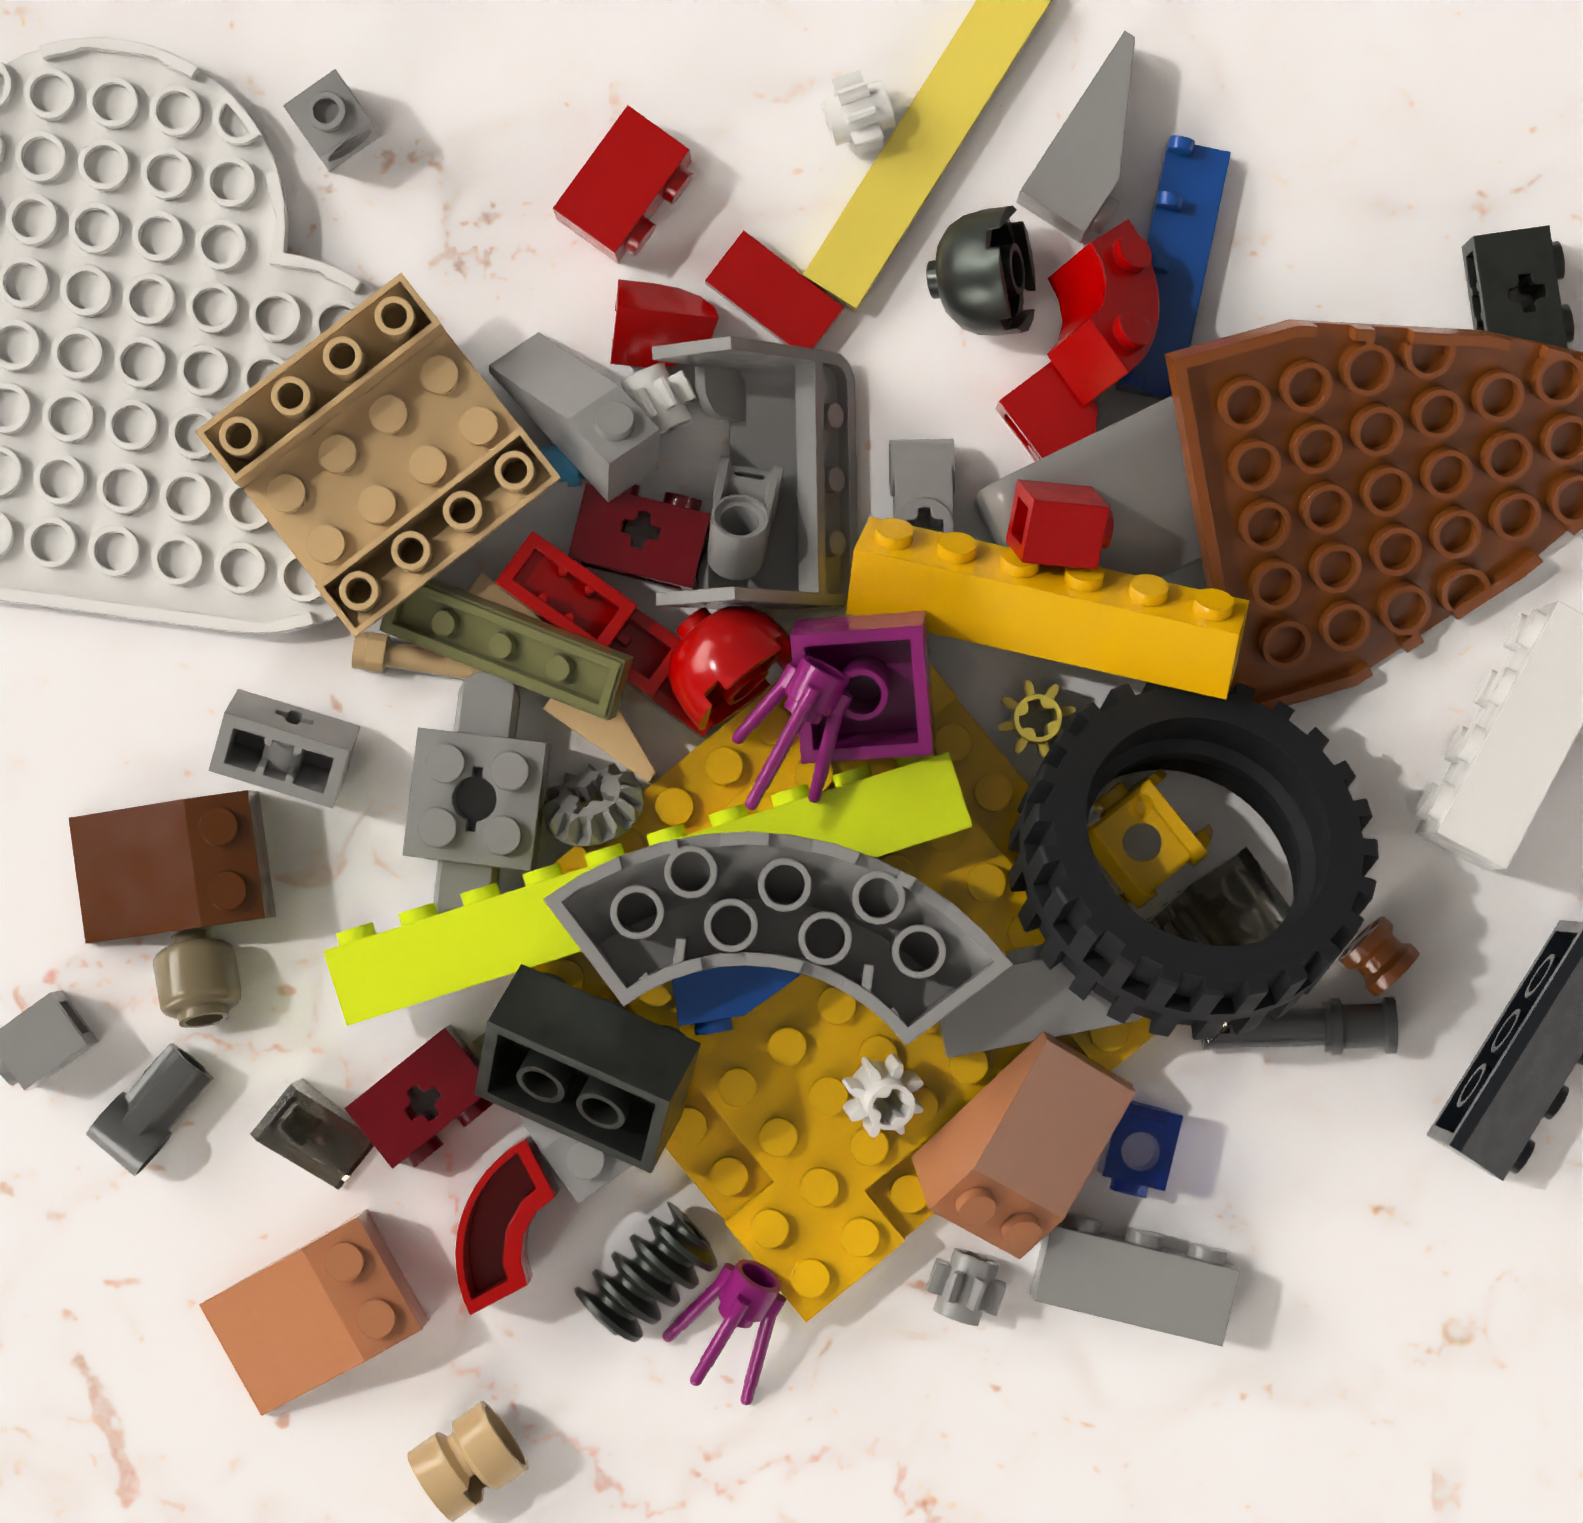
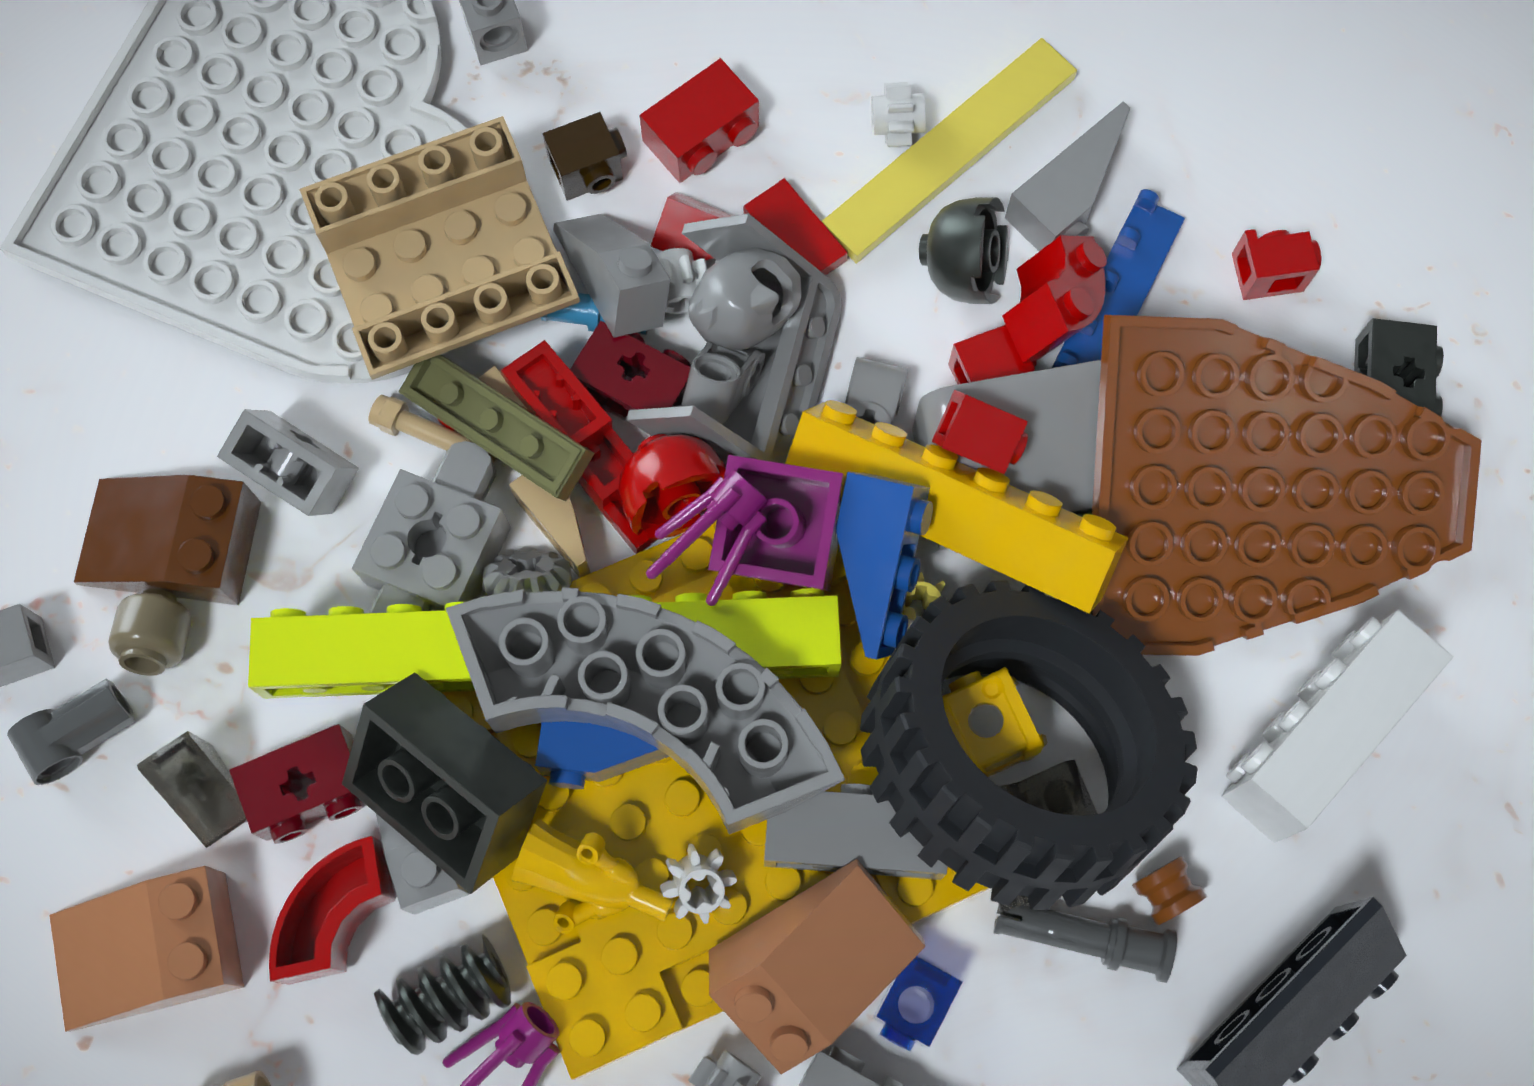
camera: 15 degrees right, 15 degrees down
(501, 269) = (585, 155): none -> dark brown brick
(731, 436) = (735, 308): none -> light grey piece
(761, 1118) = (585, 874): none -> yellow piece
(977, 681) = (878, 546): none -> blue slope
(1350, 183) = (1275, 263): none -> red brick

